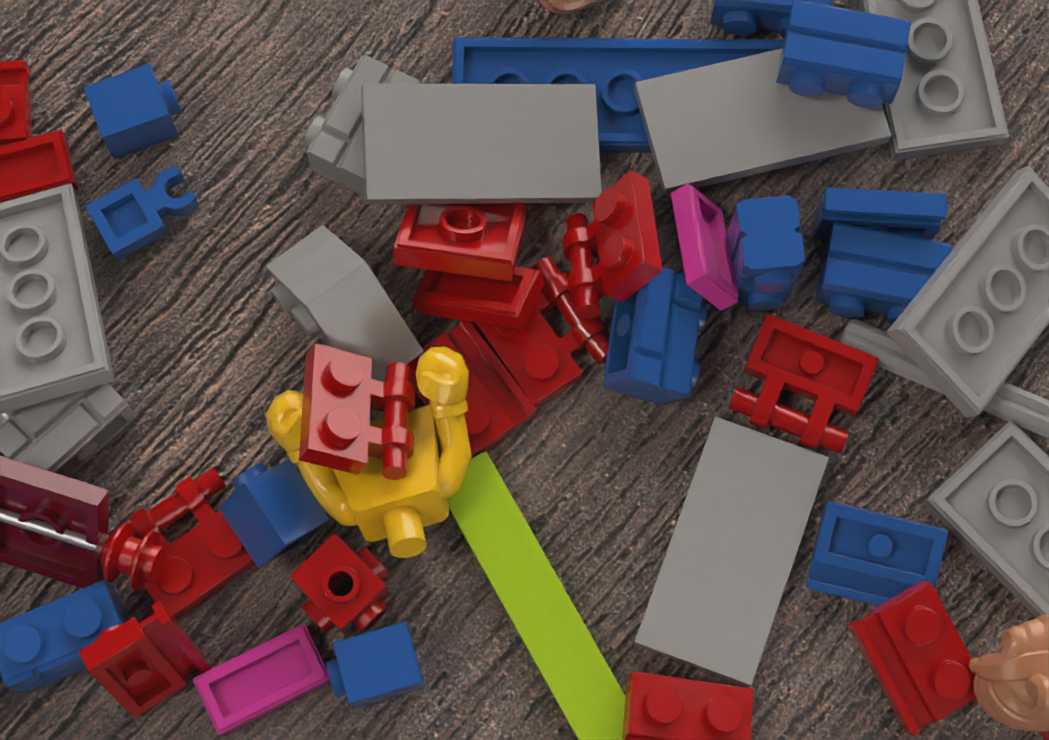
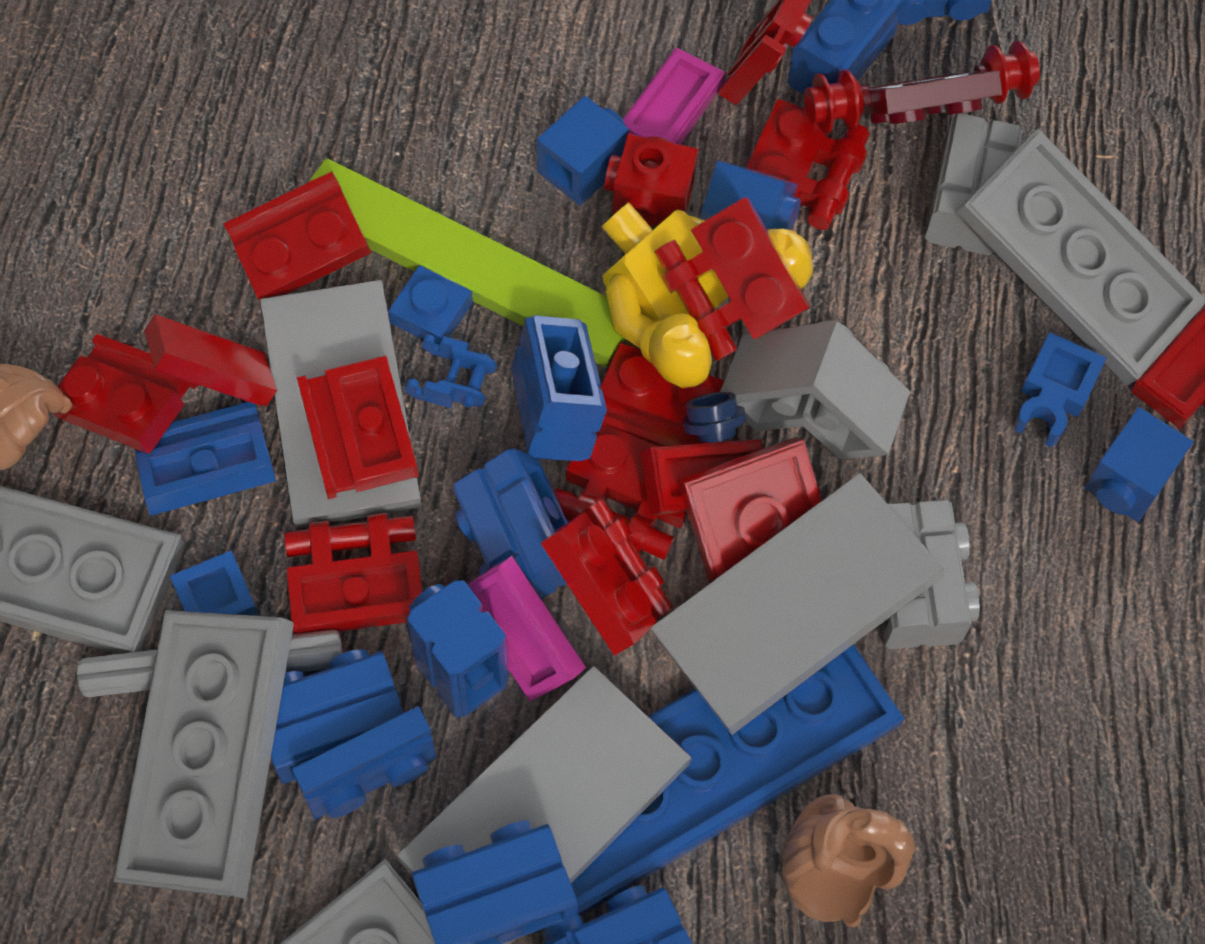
camera: 145 degrees right, 10 degrees down
(431, 334) = (713, 416): none -> dark blue plate
(554, 426) = (558, 388): none -> blue brick
(604, 596) = (430, 305): none -> blue plate
(636, 504) = (447, 391): none -> blue piece
(738, 495) = (358, 427): none -> red plate
(834, 626) = (209, 361): none -> red tile
(925, 429) = (214, 587): none -> blue plate

